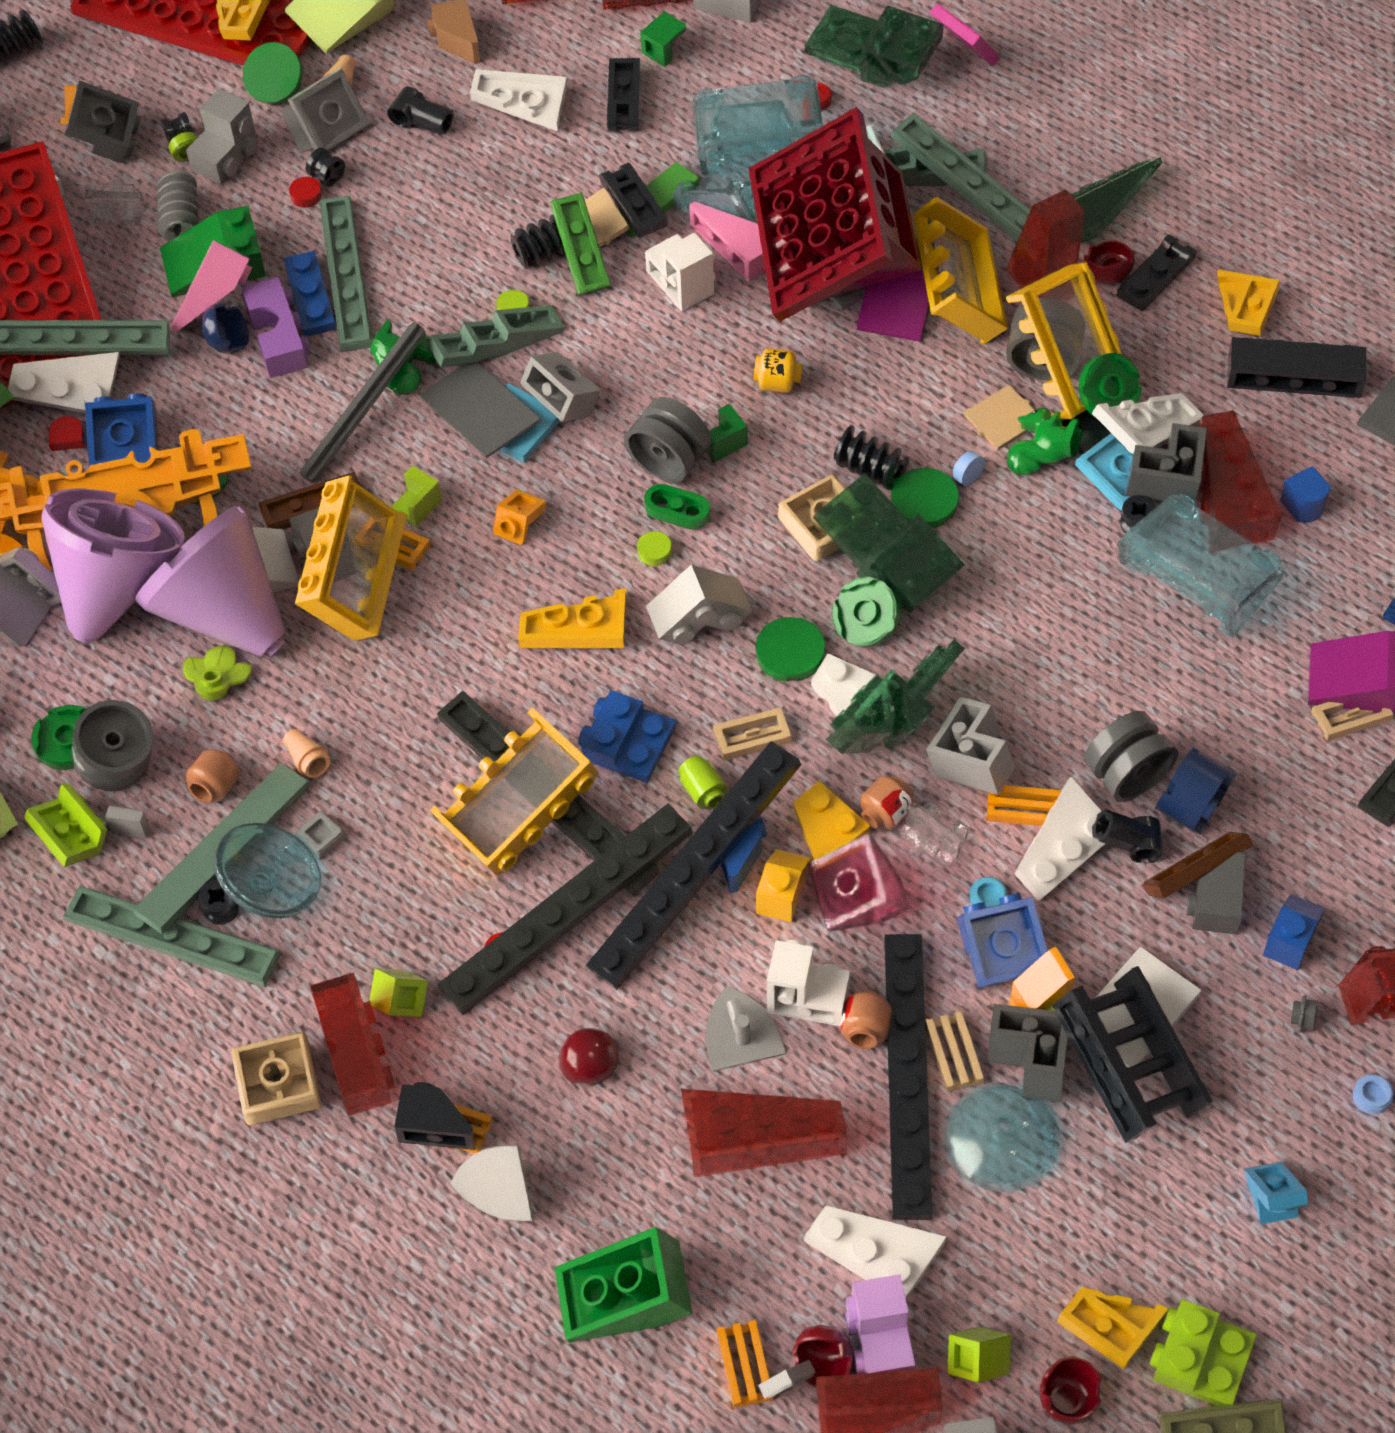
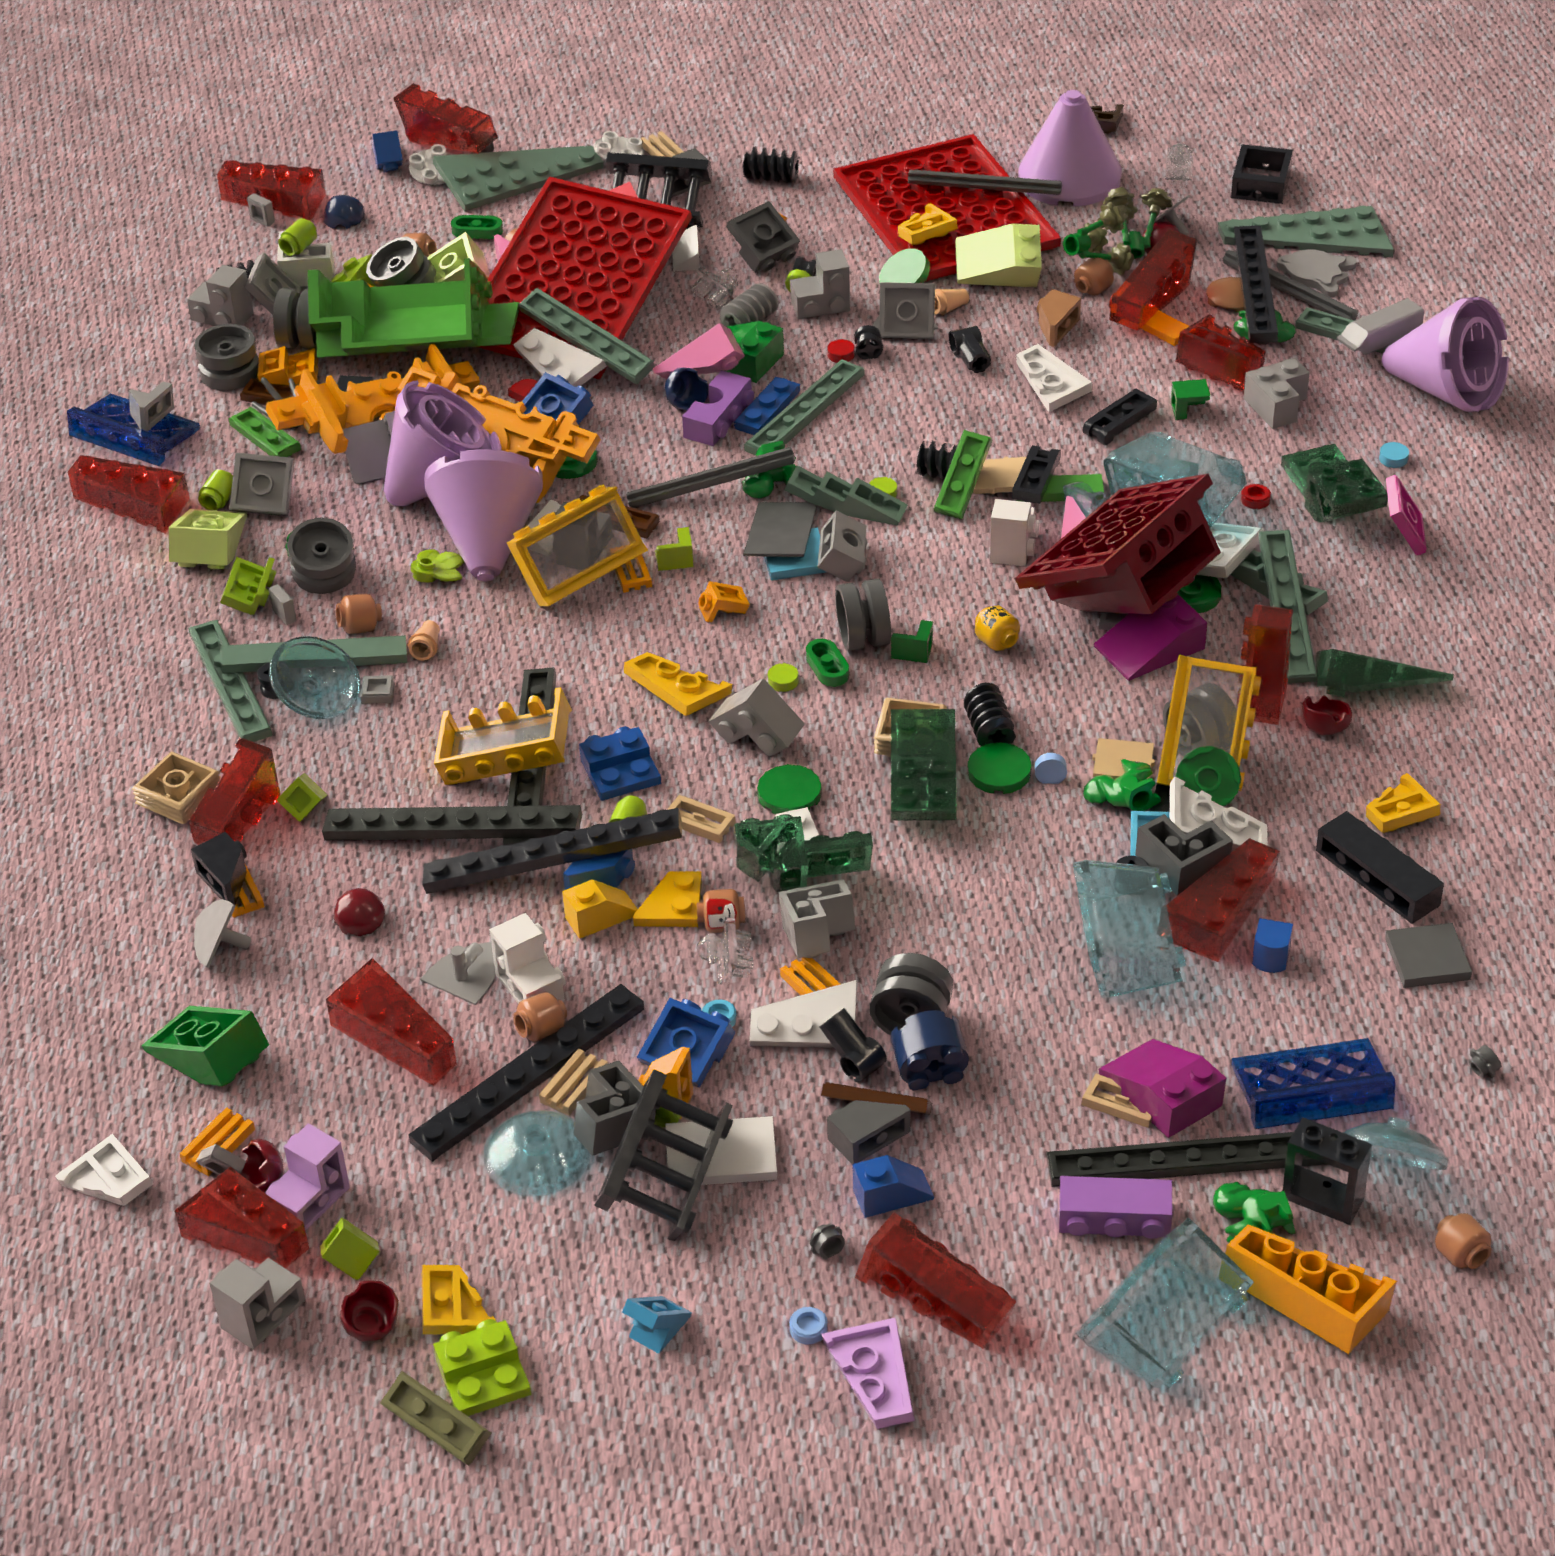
camera: 45 degrees right, 15 degrees down
(857, 886) = (637, 942): clear pink slope -> none
(866, 612) = (860, 798): tile -> none
(874, 1246) = (375, 1147): white wing -> none
(959, 270) = (1202, 627): yellow window -> none
(1156, 273) = (1359, 747): black plate -> none

